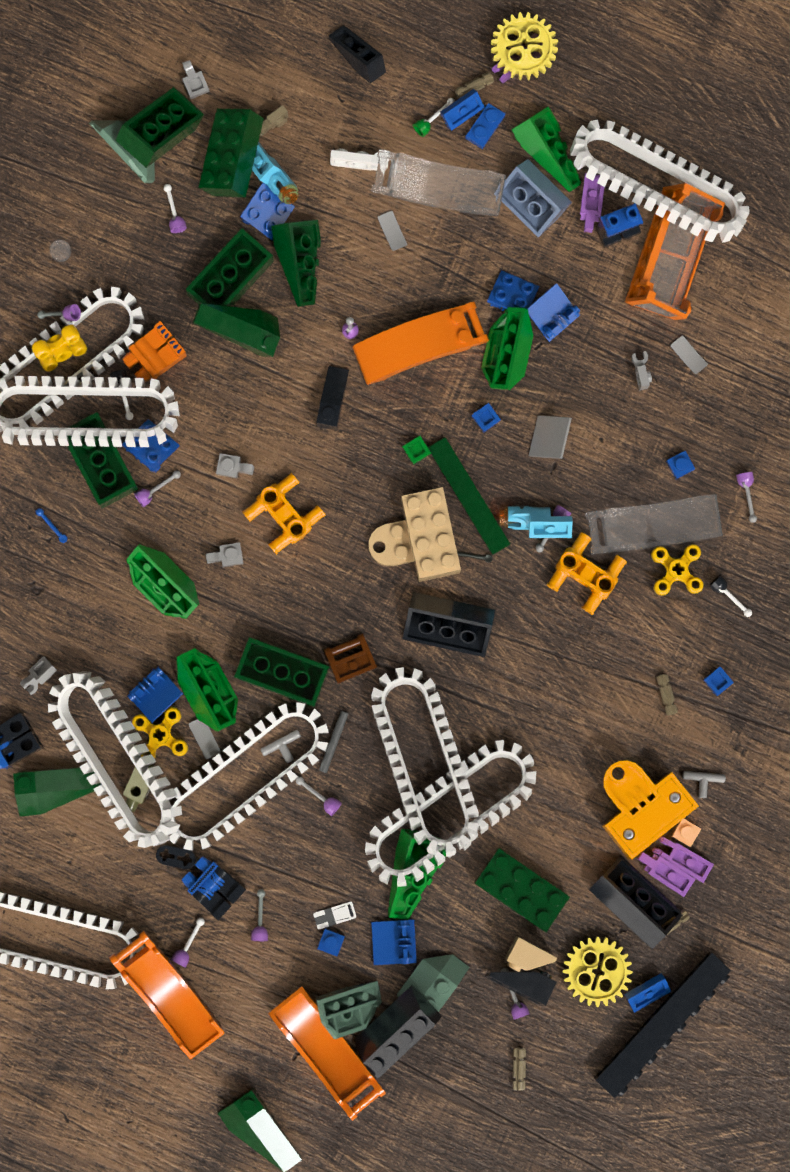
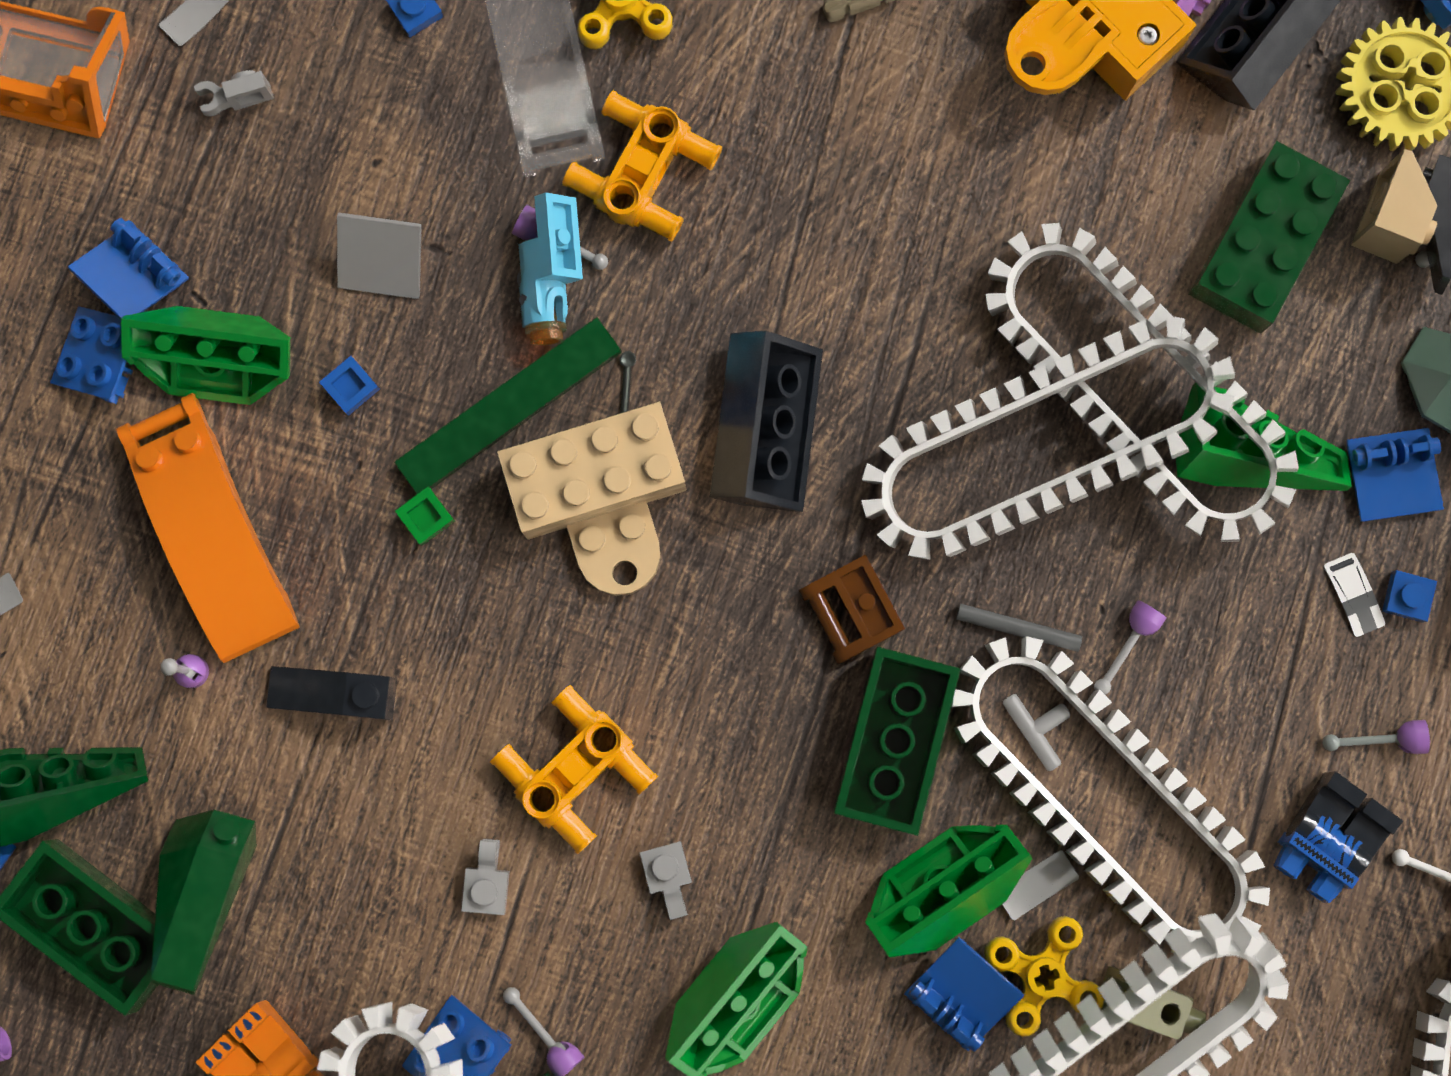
camera: 90 degrees left, 0 degrees up
(177, 852) = (1291, 919): black beam -> none

